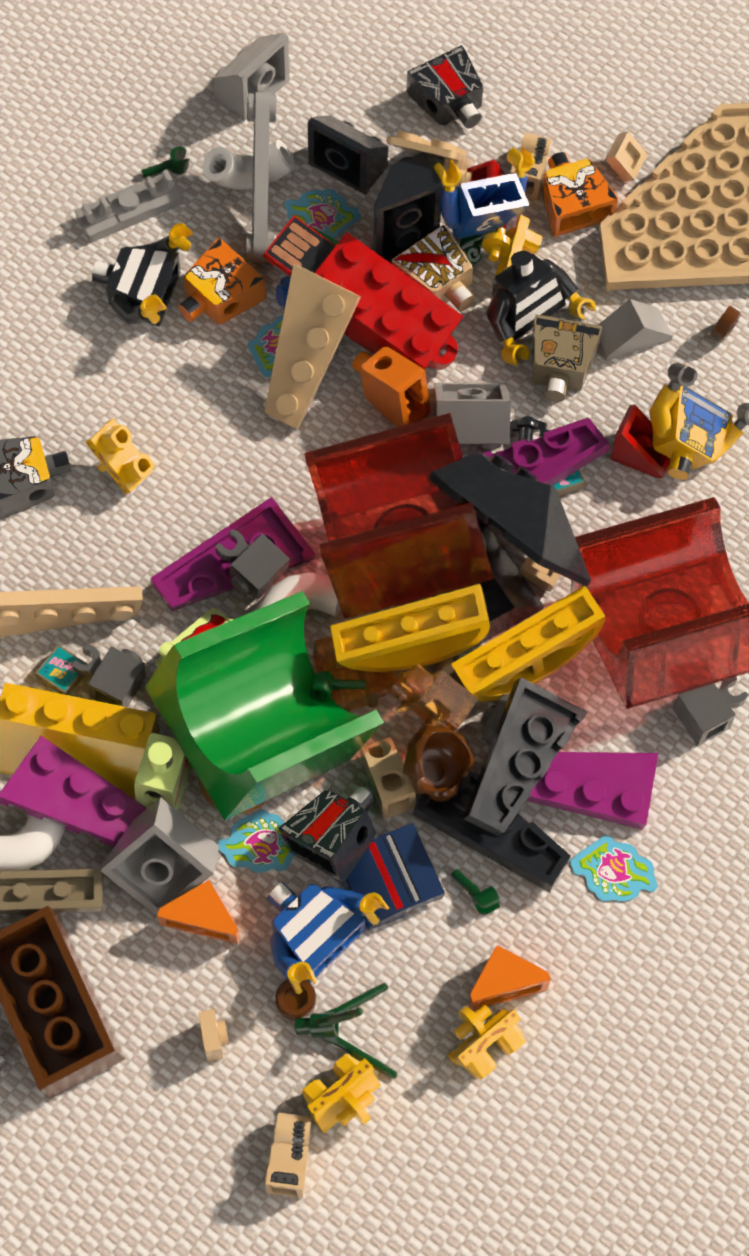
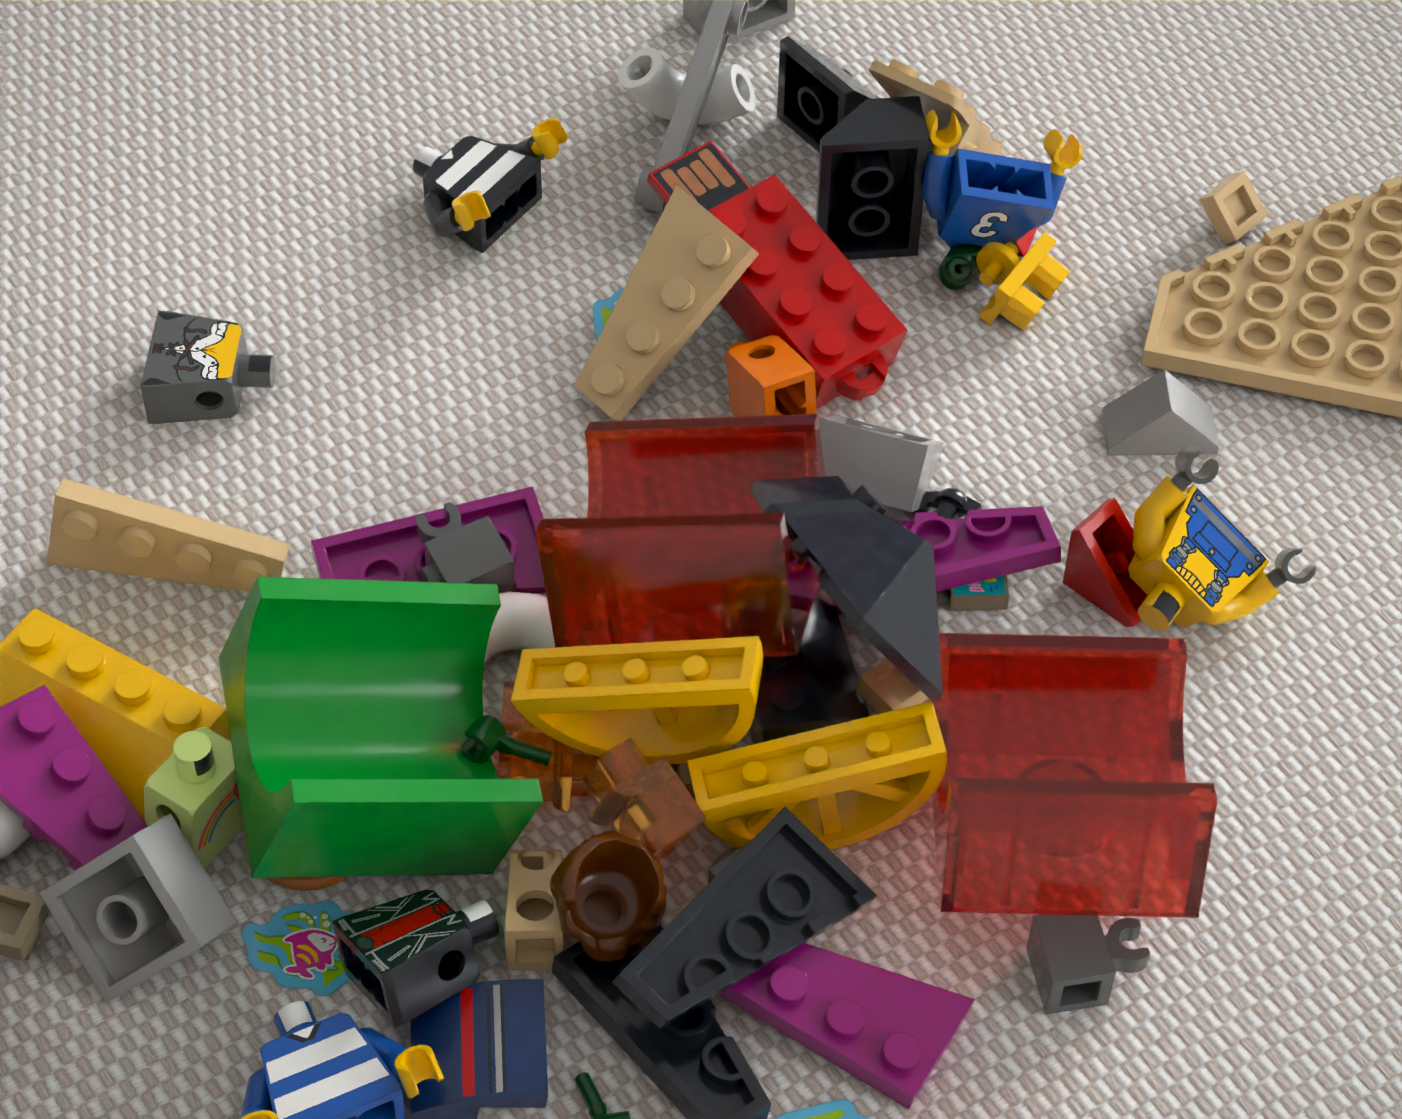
camera: 20 degrees right, 15 degrees down
(58, 671) = (134, 629): tile -> none
(115, 677) = (190, 647): dark grey brick -> none
(119, 456) = (342, 379): yellow hips -> none
(129, 206) = (507, 102): light grey plate -> none
(174, 164) = (595, 72): dark green hand -> none
(200, 913) = (163, 1008): orange slope -> none
(221, 285) = (585, 219): orange torso -> none
(323, 211) = (788, 166): sticker -> none
(439, 267) = (904, 270): torso -> none
(447, 88) = (1006, 68): black torso -> none
(525, 290) = (1016, 334): black torso -> none
(540, 149) = (1095, 183): tan leg -> none
(562, 354) = (1042, 423): dark tan torso -> none
(575, 195) = (1140, 235): orange torso -> none
(726, 324) = (1305, 447): reddish brown tile -> none

